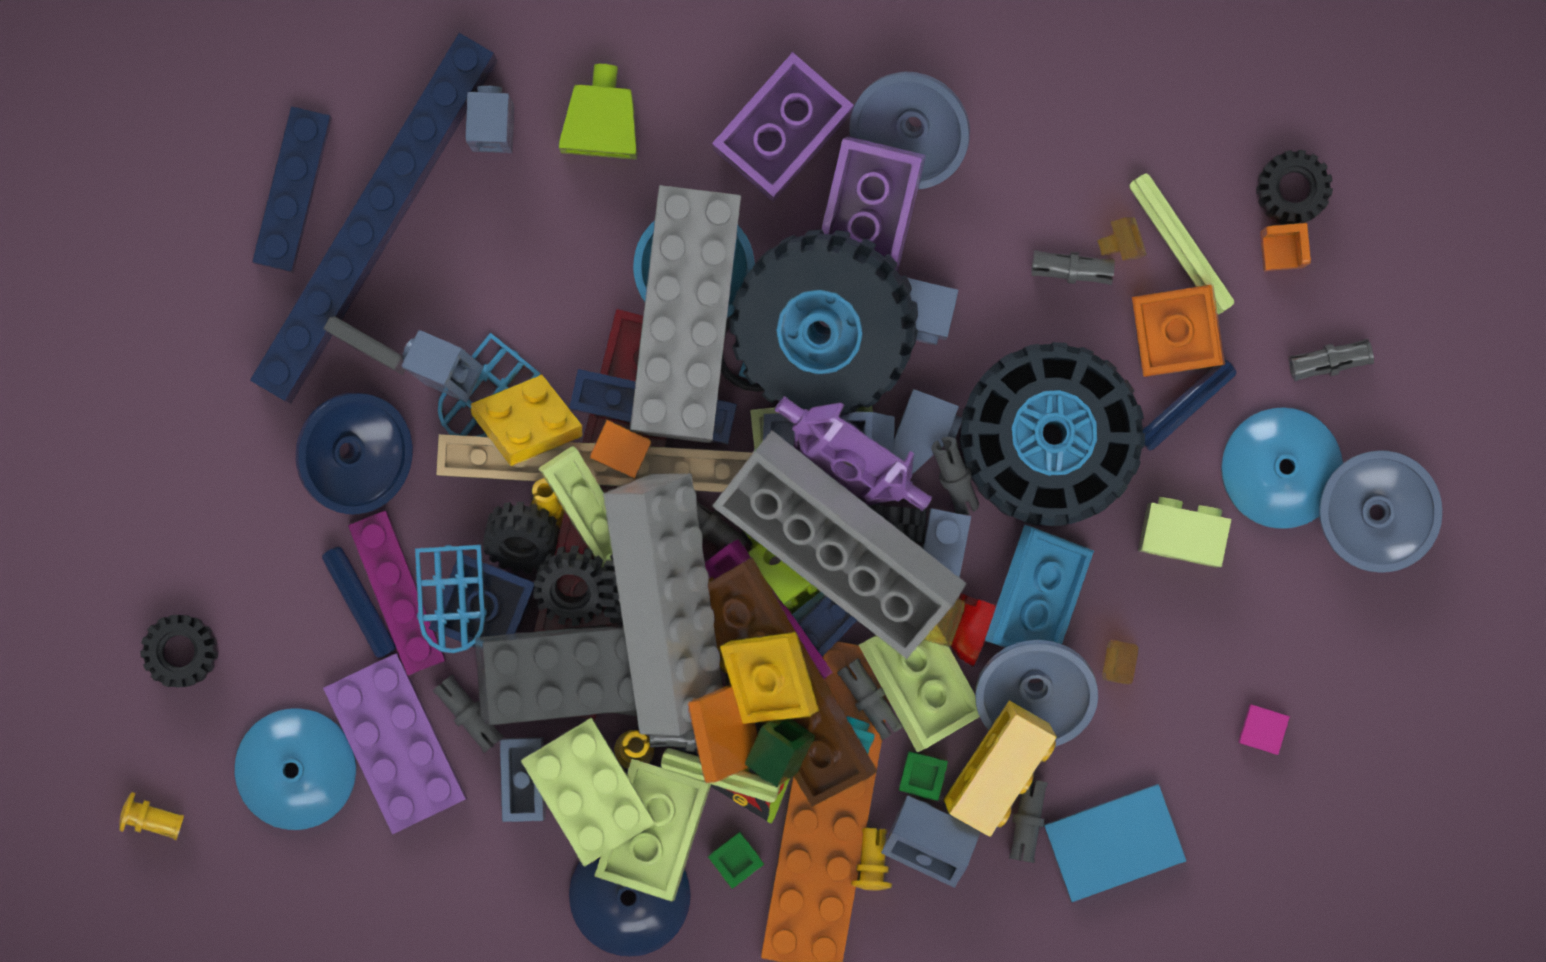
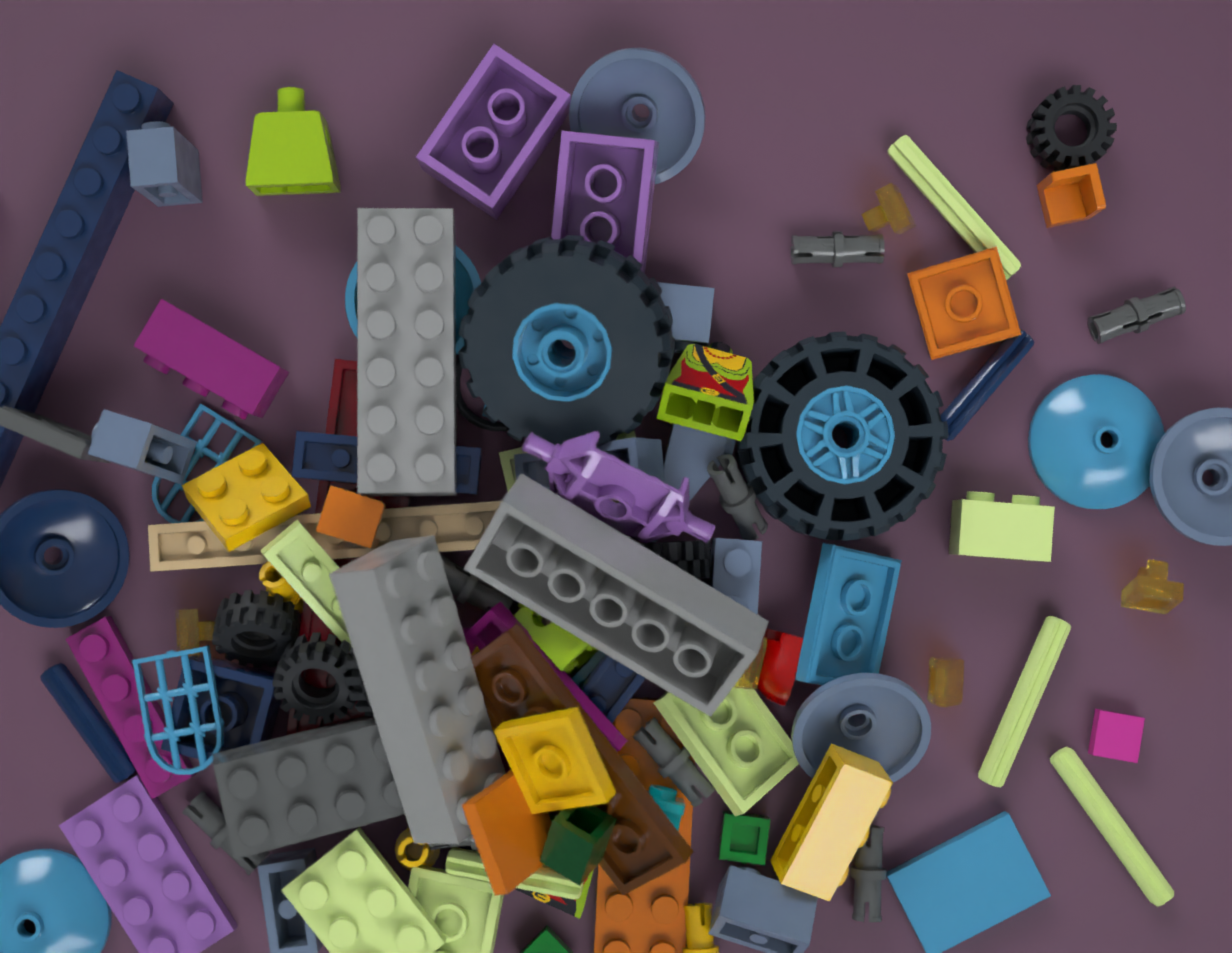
camera: 10 degrees left, 0 degrees up
(460, 532) = (190, 630): none -> clear yellow tile
(506, 297) = (210, 361): none -> magenta brick
(942, 379) = (709, 391): none -> lime torso
(1186, 688) = (1024, 701): none -> yellowish green axle
(1249, 808) = (1112, 826): none -> yellowish green axle
(1310, 605) = (1152, 590): none -> clear yellow tile

